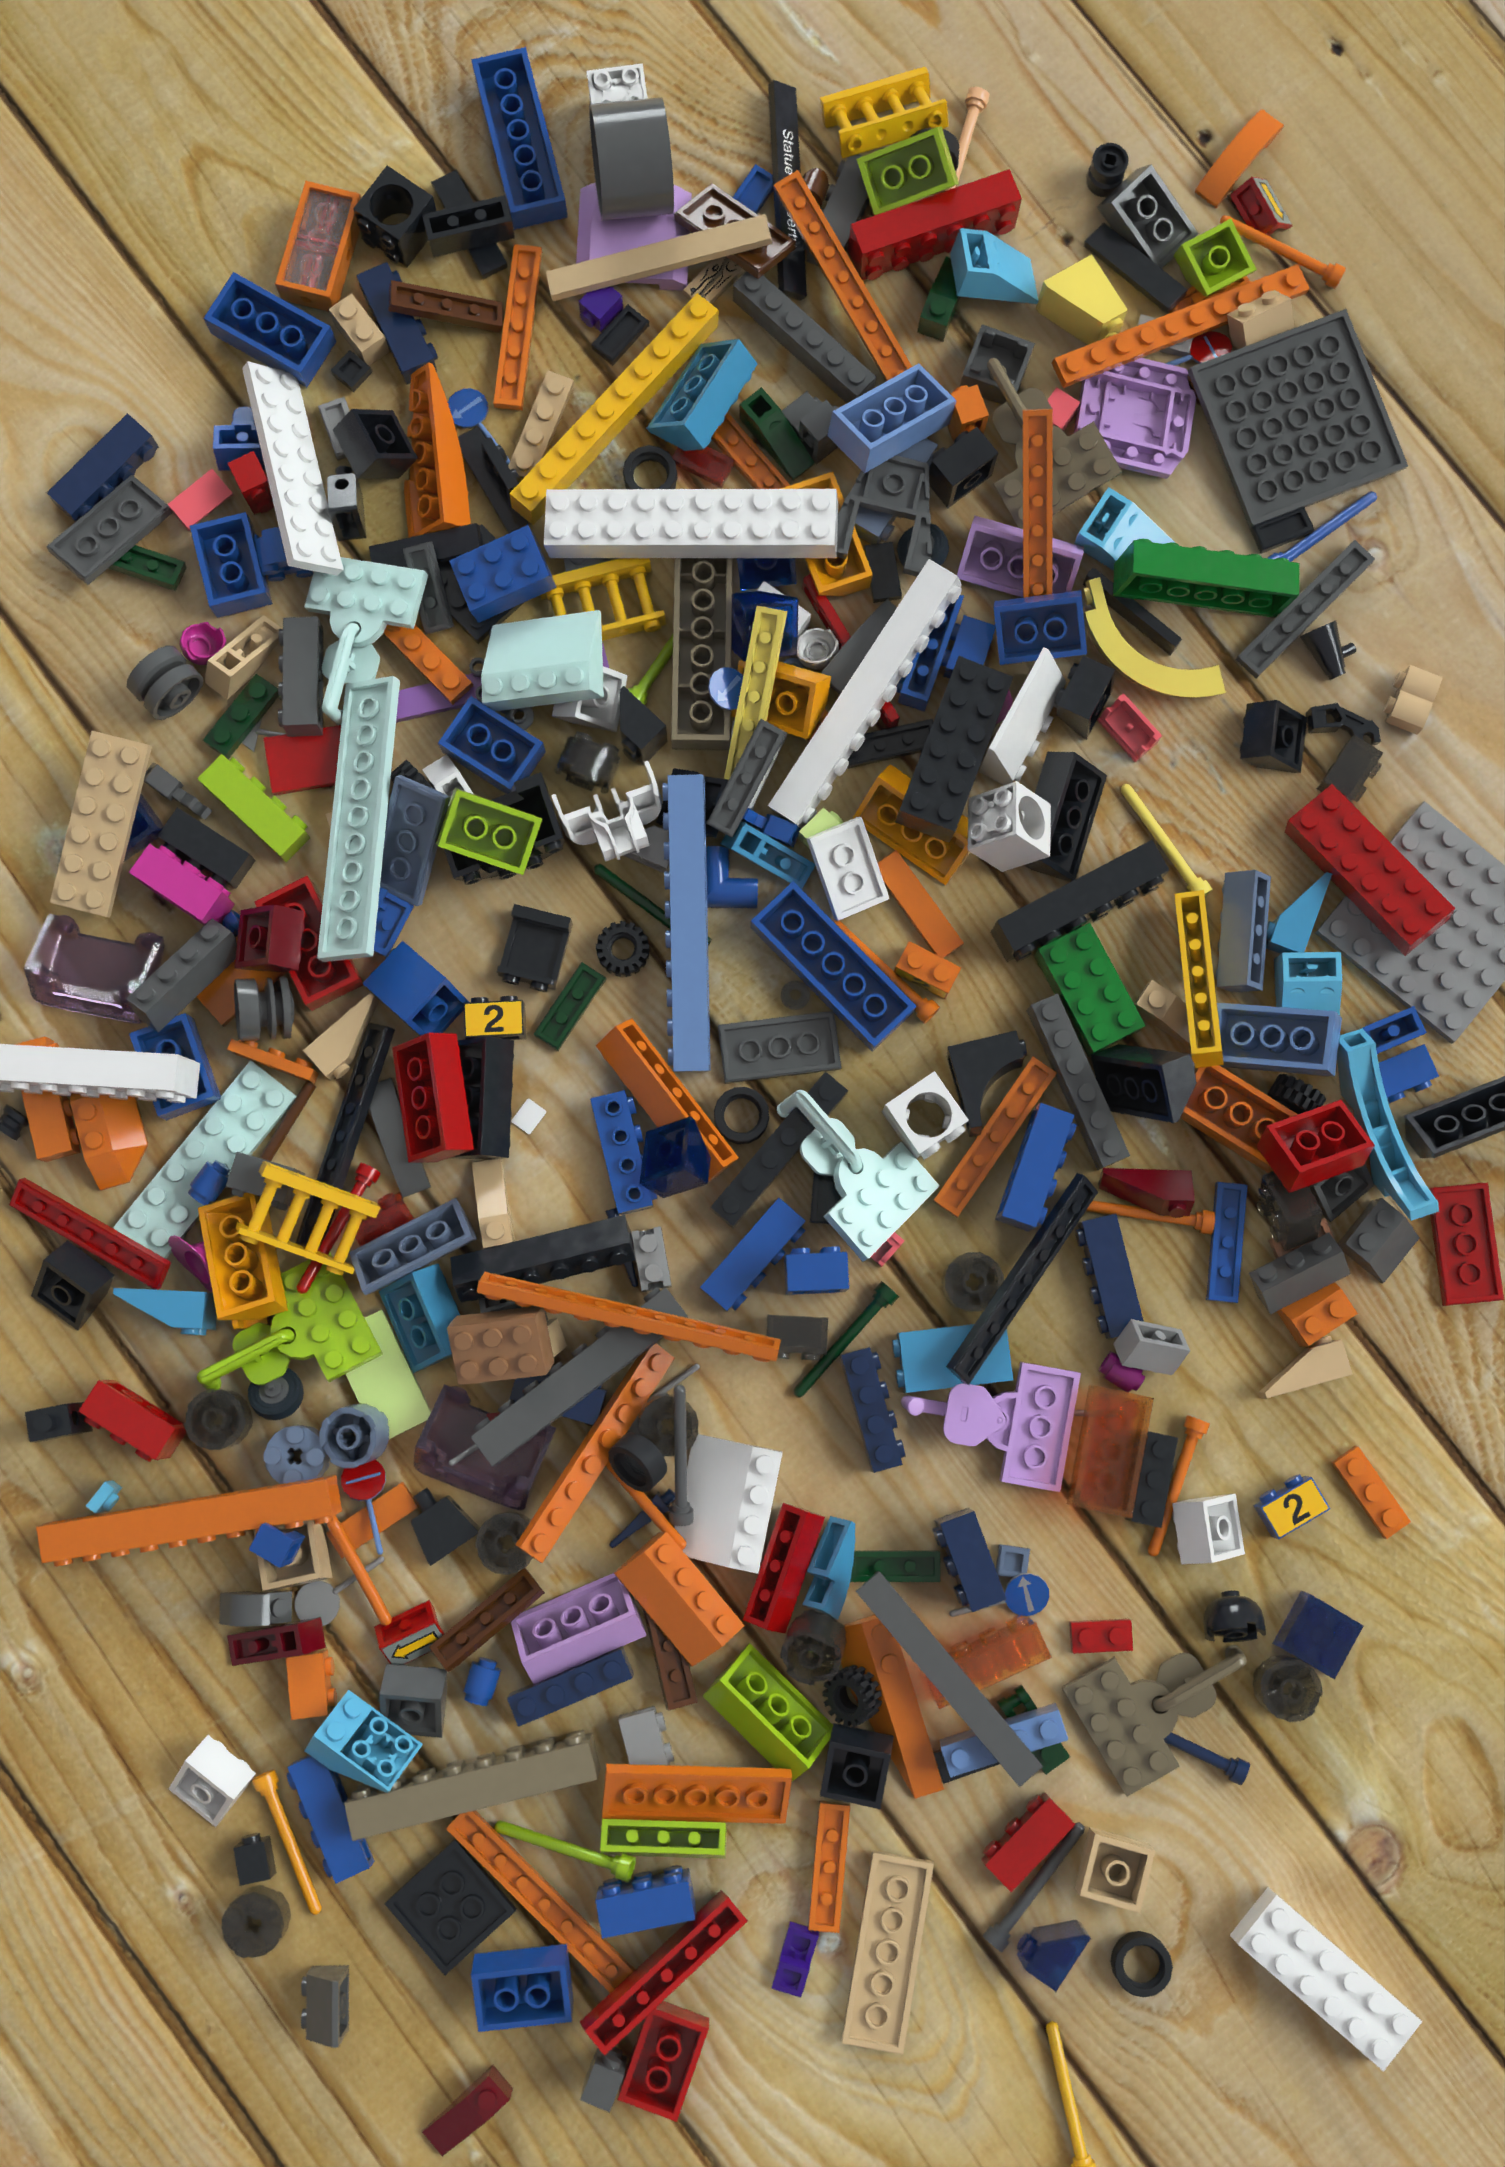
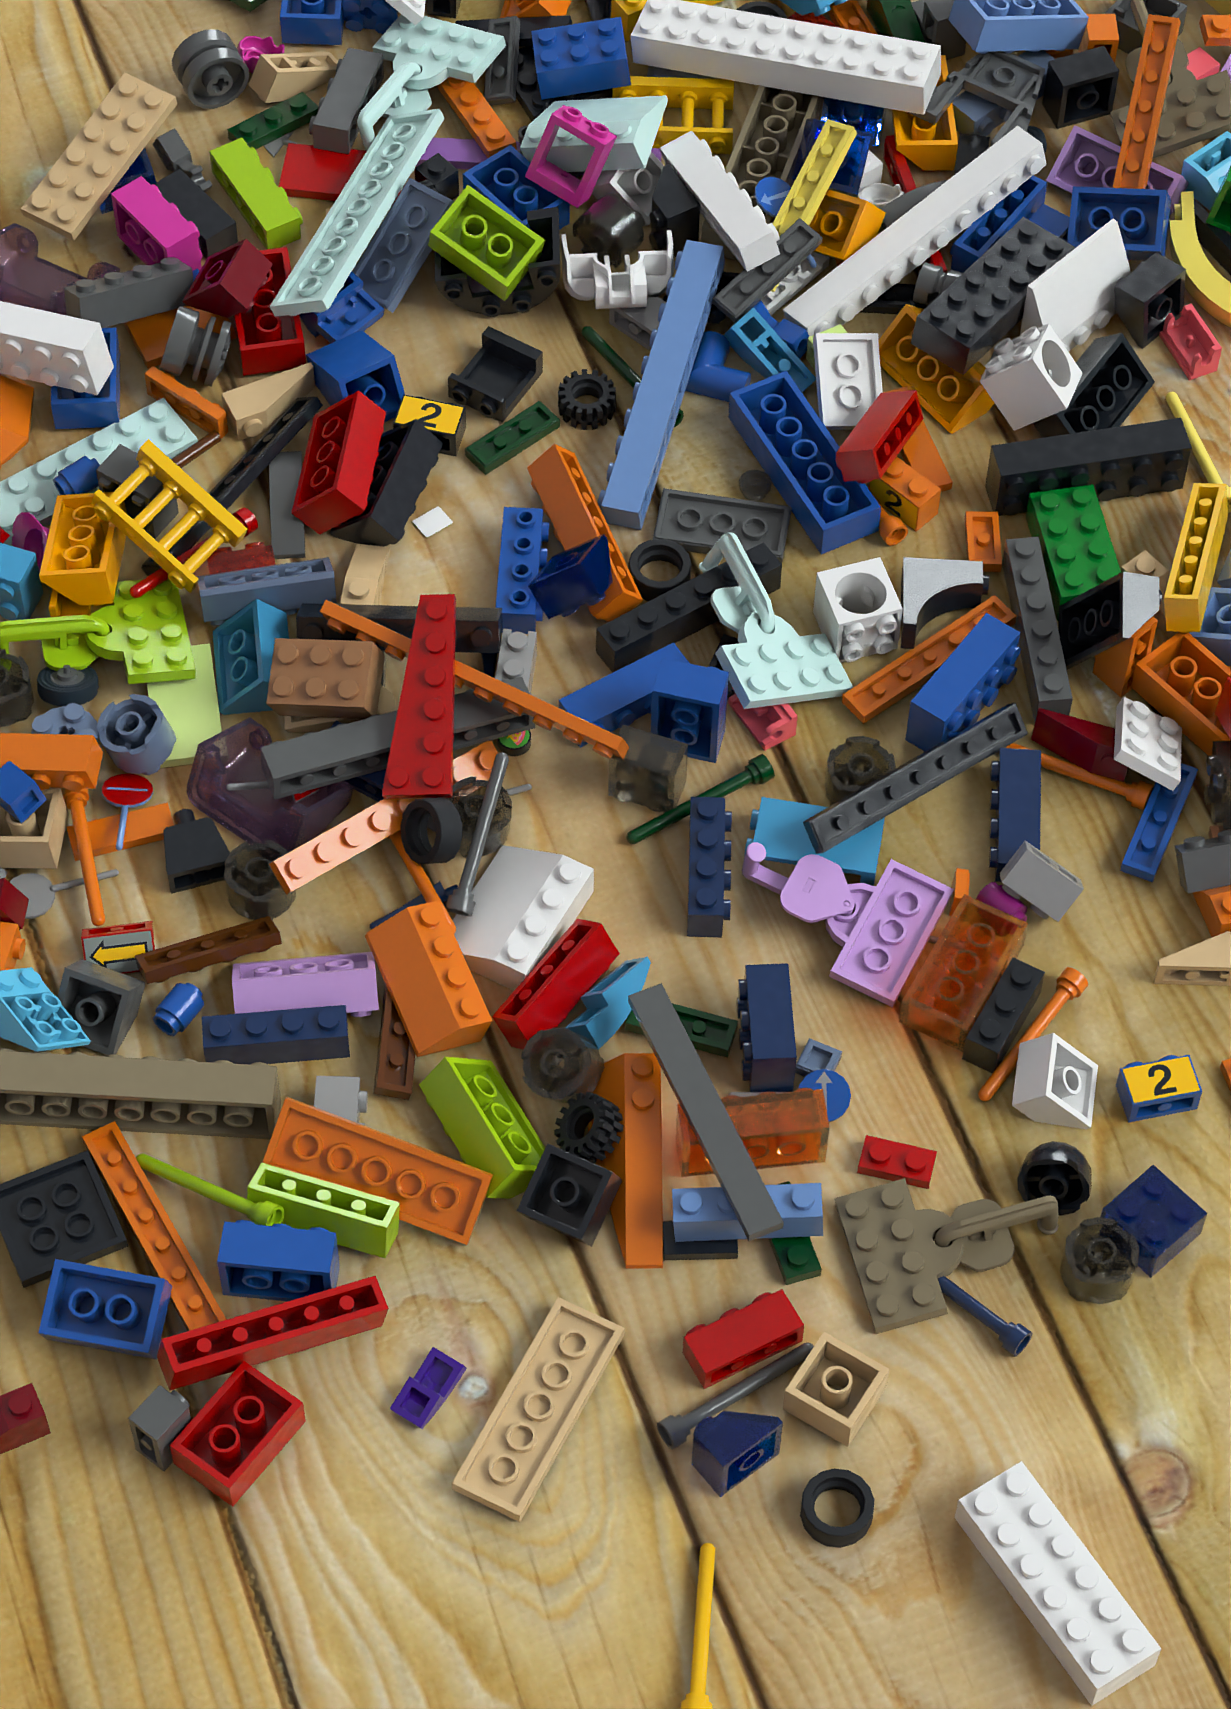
camera: 20 degrees right, 25 degrees down
(414, 745) = (441, 174): none -> black brick
(528, 728) = (559, 181): none -> dark pink window
(604, 1380) = (424, 725): none -> red wing
(681, 715) = (721, 201): none -> white brick
(829, 1866) = (501, 1301): orange plate -> none
(896, 934) = (879, 436): none -> red brick
(900, 740) = (932, 283): none -> dark grey wheel
(1006, 999) = (983, 539): none -> orange plate
(1084, 1365) = (961, 886): none -> orange tile
(1204, 1183) = (1148, 743): none -> white plate

